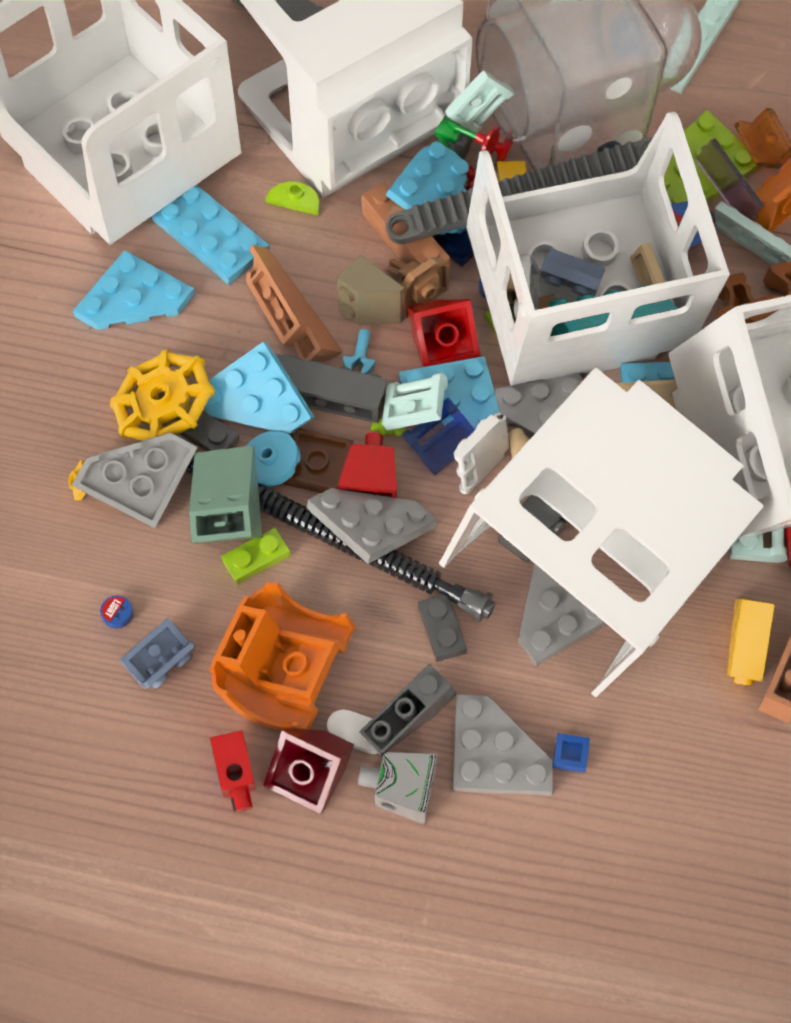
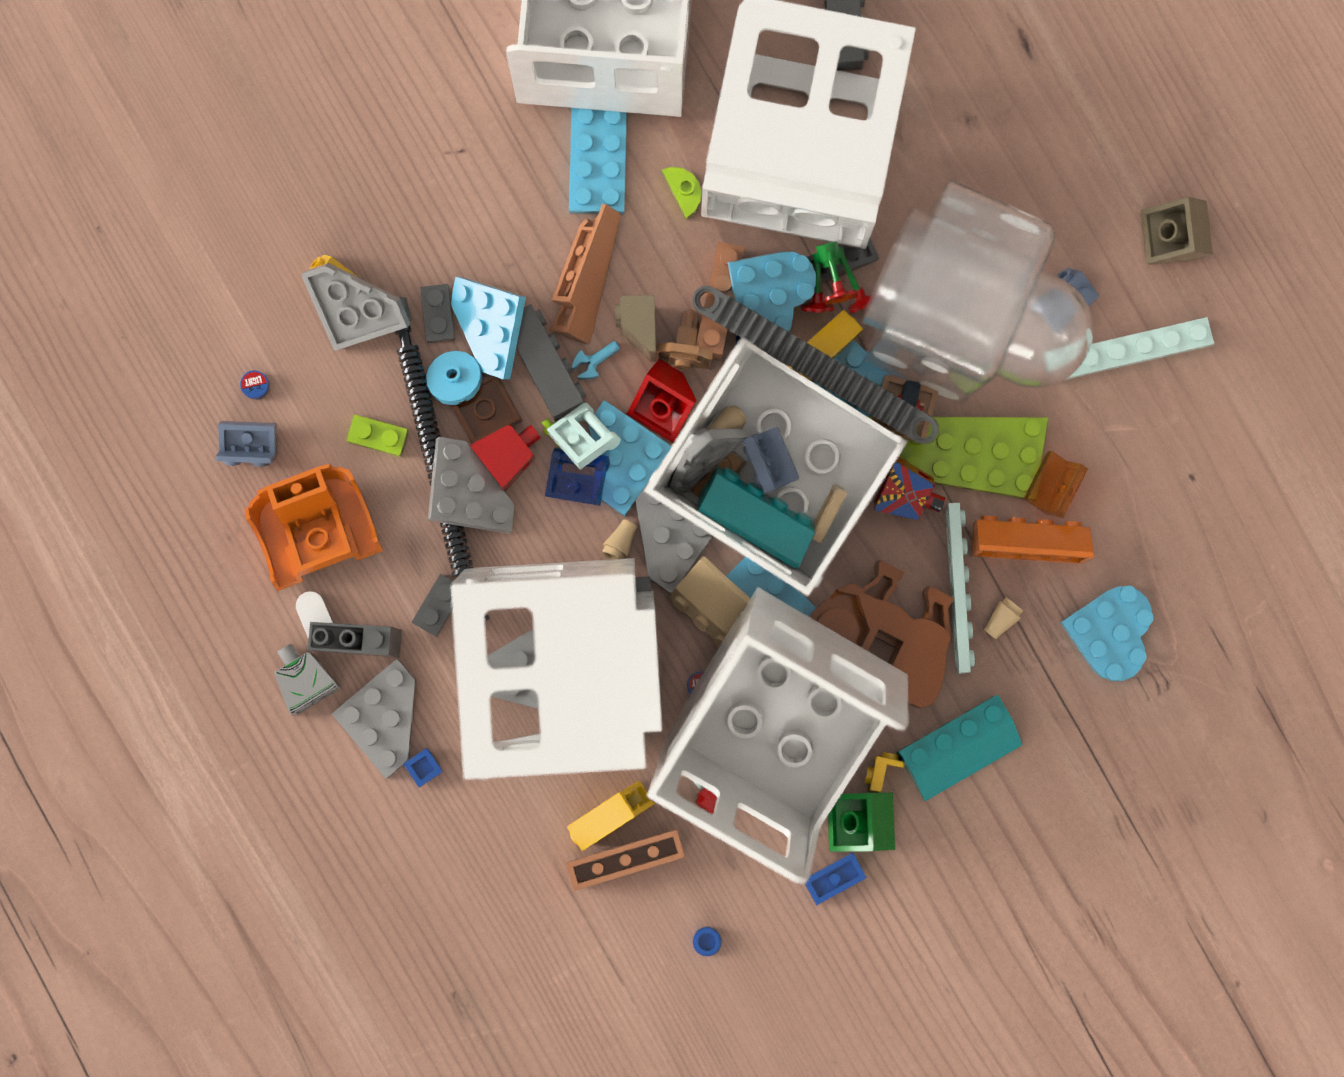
camera: 45 degrees right, 20 degrees up
(132, 294) = (496, 155): medium azure plate -> none
(156, 377) = (437, 272): yellow plate -> none
(225, 496) = (389, 380): sand green slope -> none
(231, 757) = (220, 559): red torso -> none
(308, 766) = (261, 611): dark red slope -> none
(479, 101) = (863, 255): light aqua plate -> none
(481, 451) = (589, 517): white plate -> none
(728, 180) = (978, 495): piece -> none

